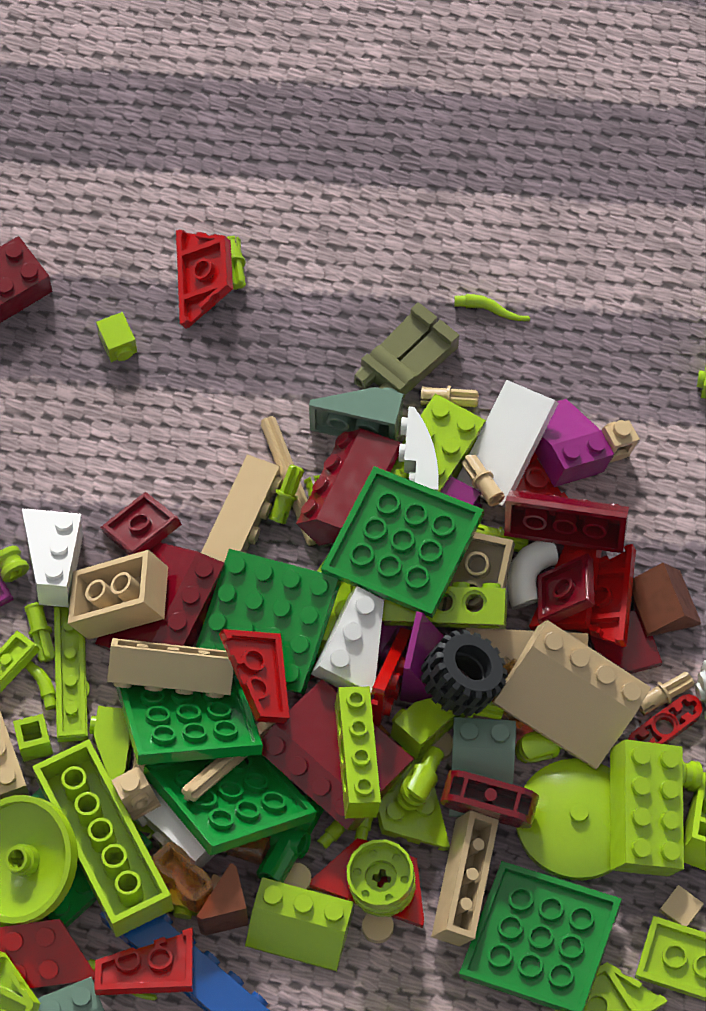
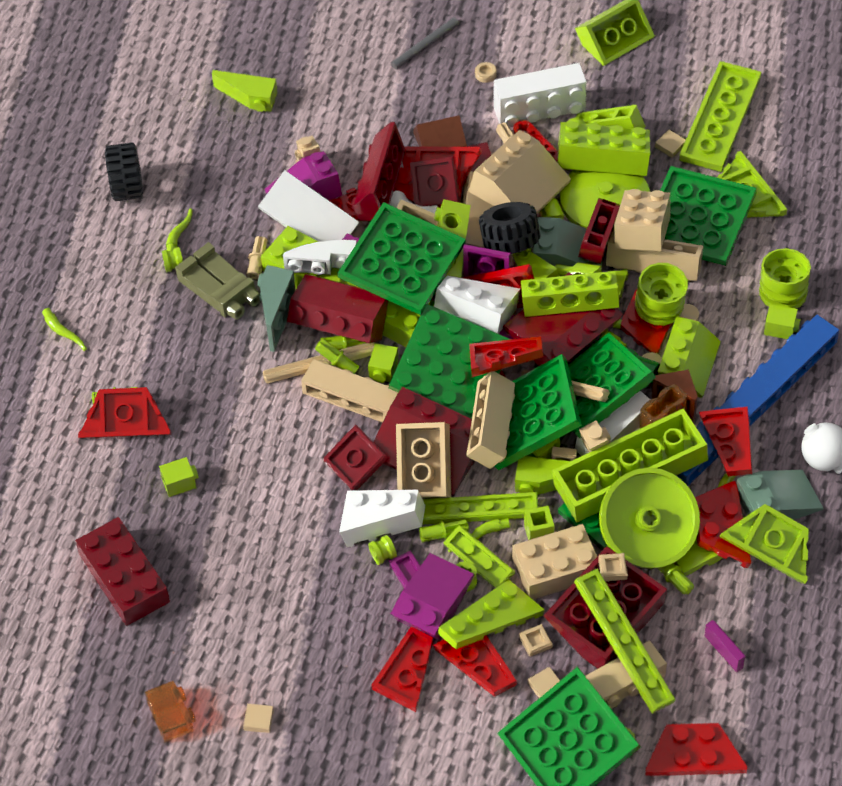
camera: 85 degrees left, 10 degrees down
(284, 547) = (383, 363): none -> lime brick
(334, 196) = (58, 328): none -> lime animal
(439, 301) = (171, 258): none -> lime wheel
(483, 480) = (339, 229): tan axle -> none
(503, 852) = (642, 220): none -> tan brick
(561, 228) = (124, 171): none -> black tyre

